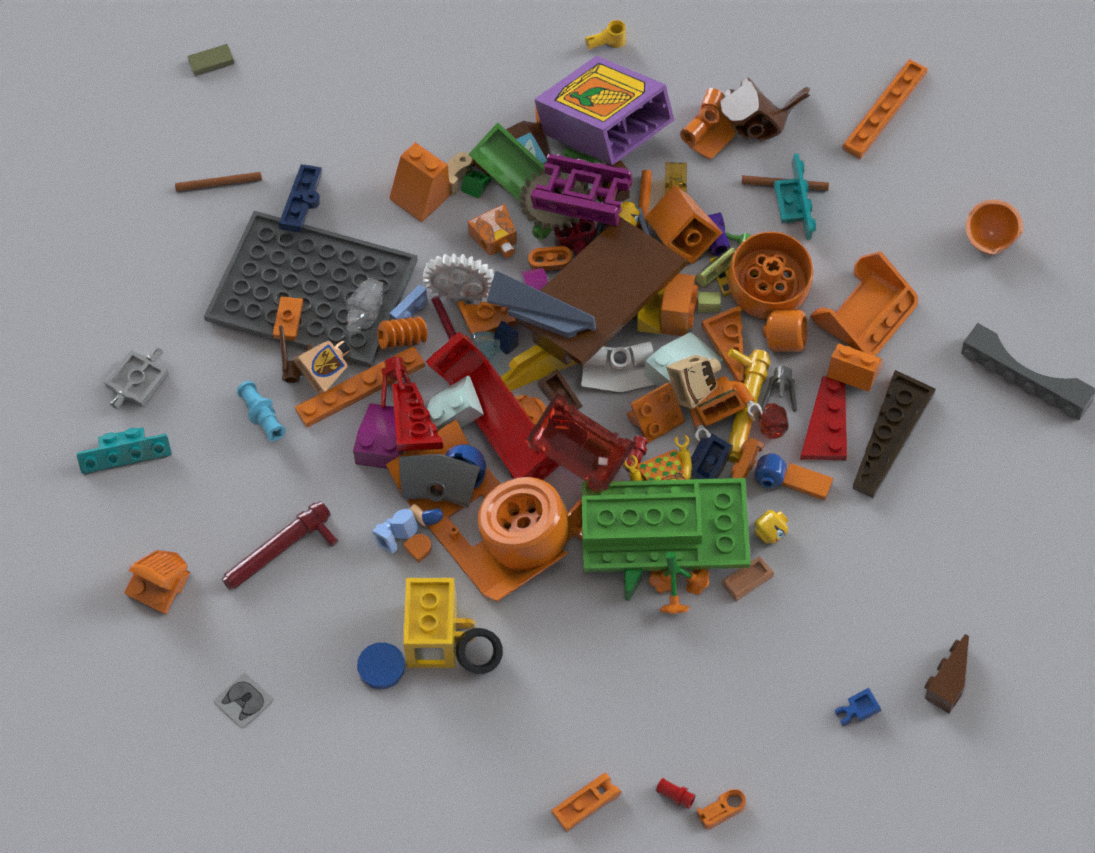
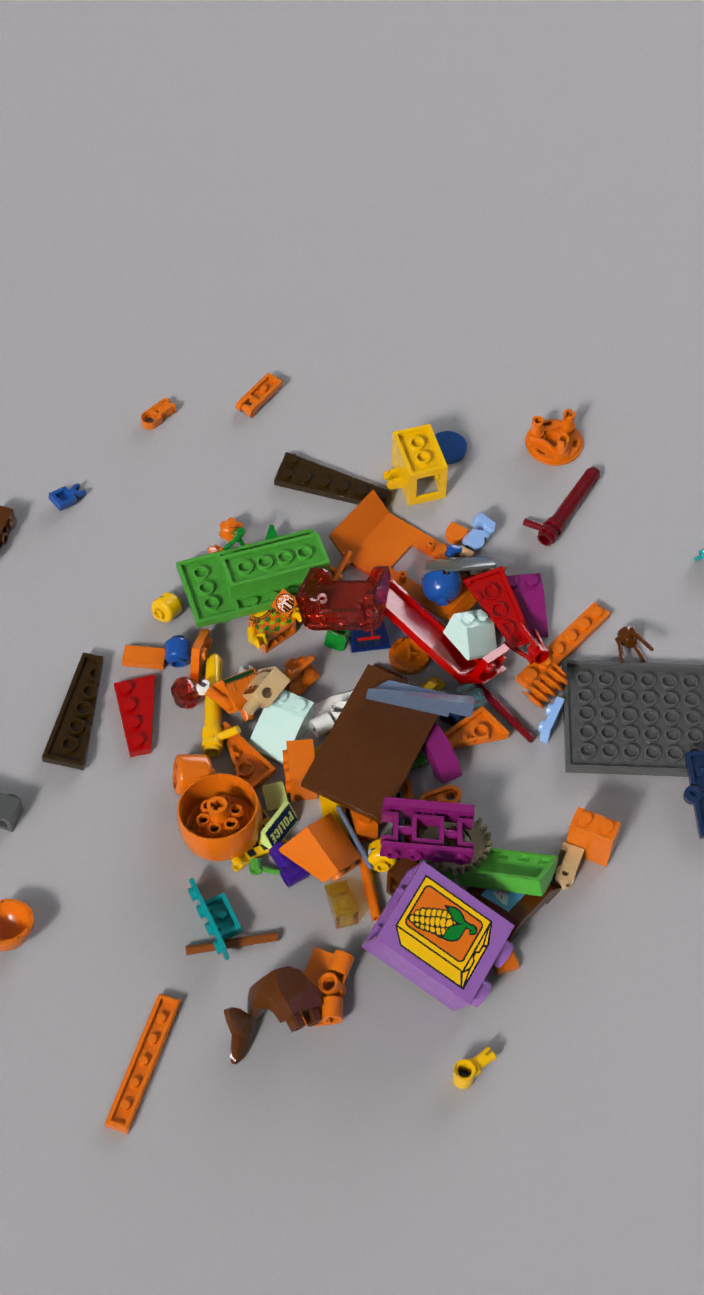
camera: 160 degrees right, 5 degrees down
(158, 579) = (649, 457): orange piece -> none
(243, 700) = (540, 405): sticker -> none
(251, 642) = (554, 440): none -> orange piece
(261, 411) = (636, 598): medium azure piece -> none
(289, 317) = (653, 676): orange plate -> none
(323, 364) = (603, 641): torso -> none
(364, 305) = (589, 695): clear hinge -> none
(458, 278) = (512, 732): white gear -> none
(494, 231) = (503, 811): orange torso -> none
(497, 650) = (374, 462): black tyre -> none
(533, 536) = (360, 555): orange wheel -> none
(553, 661) = (319, 480): none -> dark brown wing
(639, 449) = (300, 643): red pin -> none
(643, 474) = (284, 603): none -> orange tile
(678, 794) = (194, 413): red pin -> none
(710, 457) = (234, 646): dark blue slope -> none
(747, 579) = (169, 576): nougat tile -> none
(781, 380) = (187, 736): dark grey plant -> none
(854, 367) = (119, 758): orange slope -> none
(873, 308) = (120, 820): orange windscreen -> none

